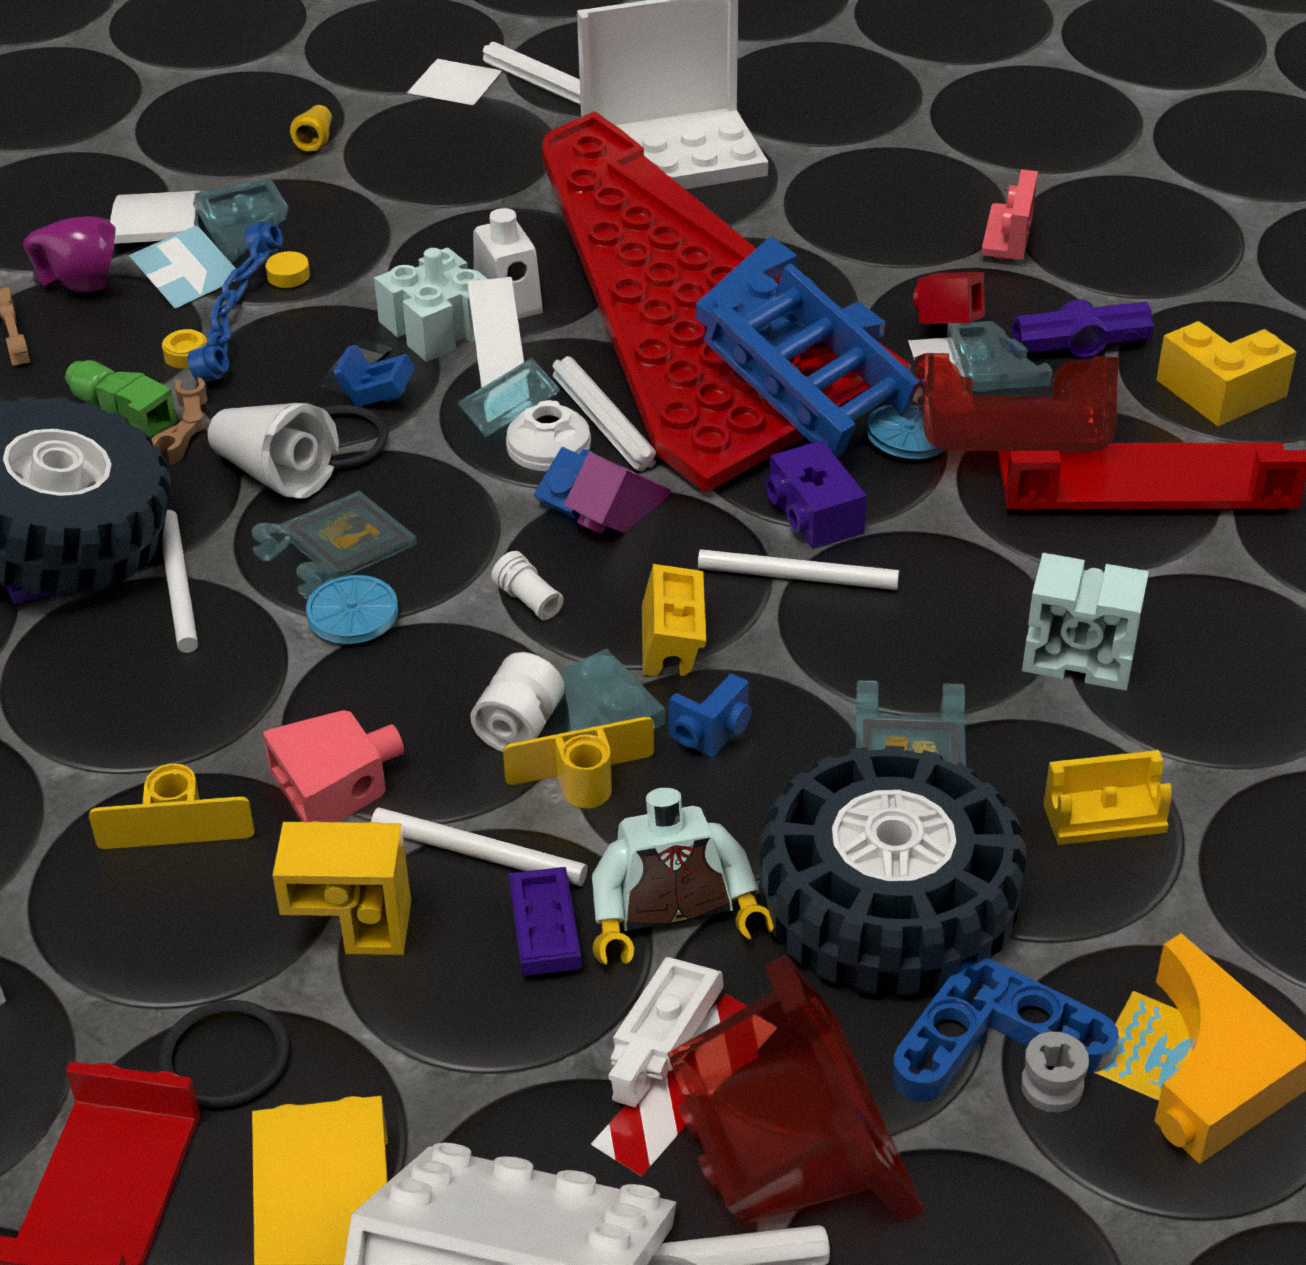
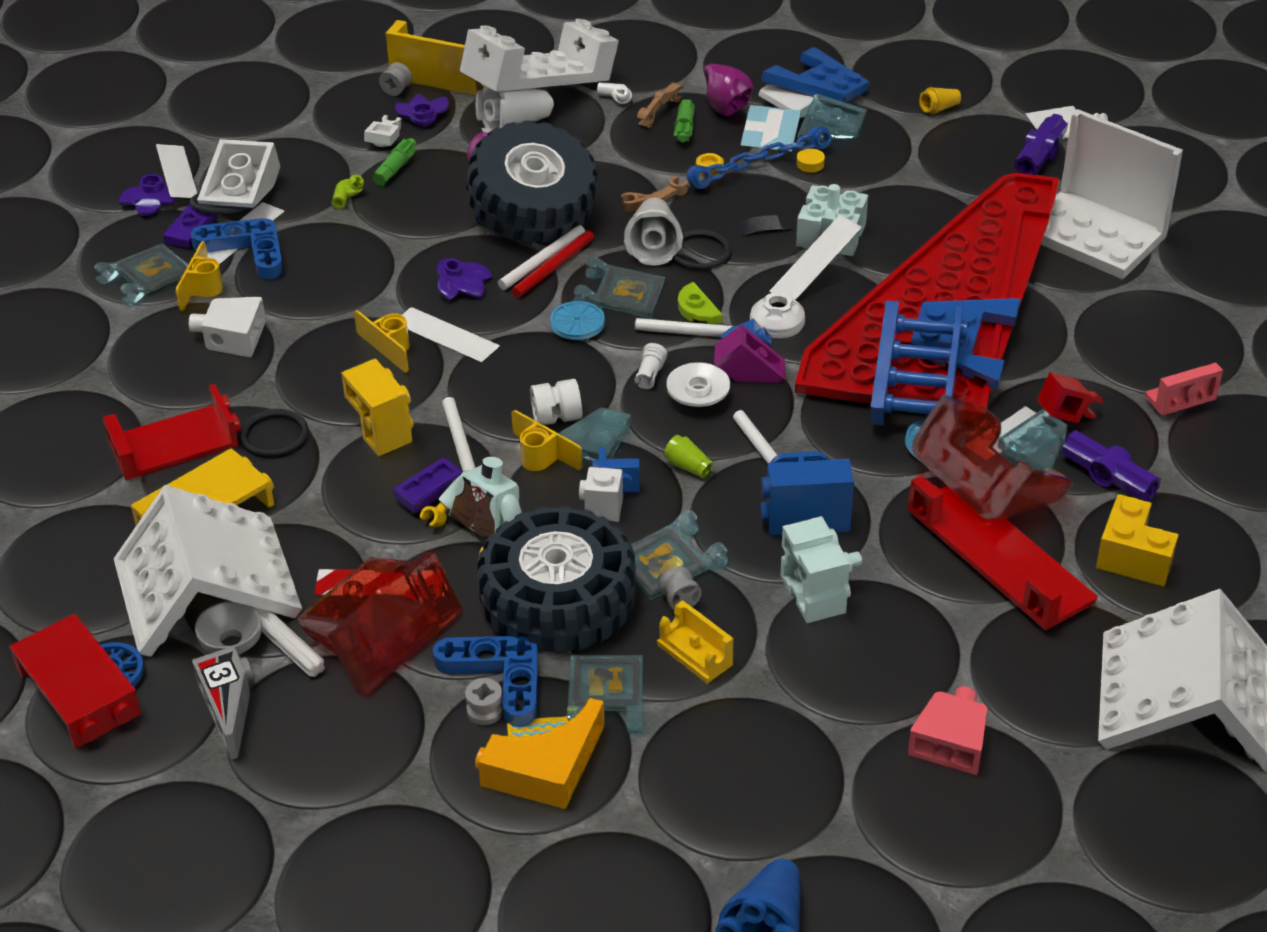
camera: 55 degrees right, 0 degrees up
(79, 326) = (684, 121): none -> bright green piece
(126, 677) = (462, 278): none -> dark purple plate
(130, 394) = (642, 174): bright green piece -> none
(154, 180) = (825, 78): none -> blue wing
(202, 756) = (449, 335): none -> white sticker
(205, 577) = (552, 264): none -> red bar
(330, 764) = (459, 368): coral torso -> none
(375, 381) = (747, 231): blue bracket -> none
(451, 492) = (696, 305): none -> lime plate
(479, 523) = (680, 327): none -> white bar
(491, 105) = (1041, 144): none -> dark purple piece
(505, 251) = (886, 225): white torso -> none
(508, 397) = (794, 283): clear light blue tile -> none
(604, 414) = (818, 322): white axle -> none
(616, 558) = (698, 384): none -> white dish
(658, 1023) = (398, 548): white hinge -> none
(672, 618) = (669, 421): yellow hinge -> none
(742, 637) = (687, 456): none -> lime cone
(749, 745) = (603, 492): none -> white brick
(816, 494) = (829, 426): dark purple brick -> none
(940, 560) = (805, 488): none -> blue brick
(995, 762) = (678, 586): none -> light grey wheel
(1115, 933) = (609, 679): none -> clear light blue flag

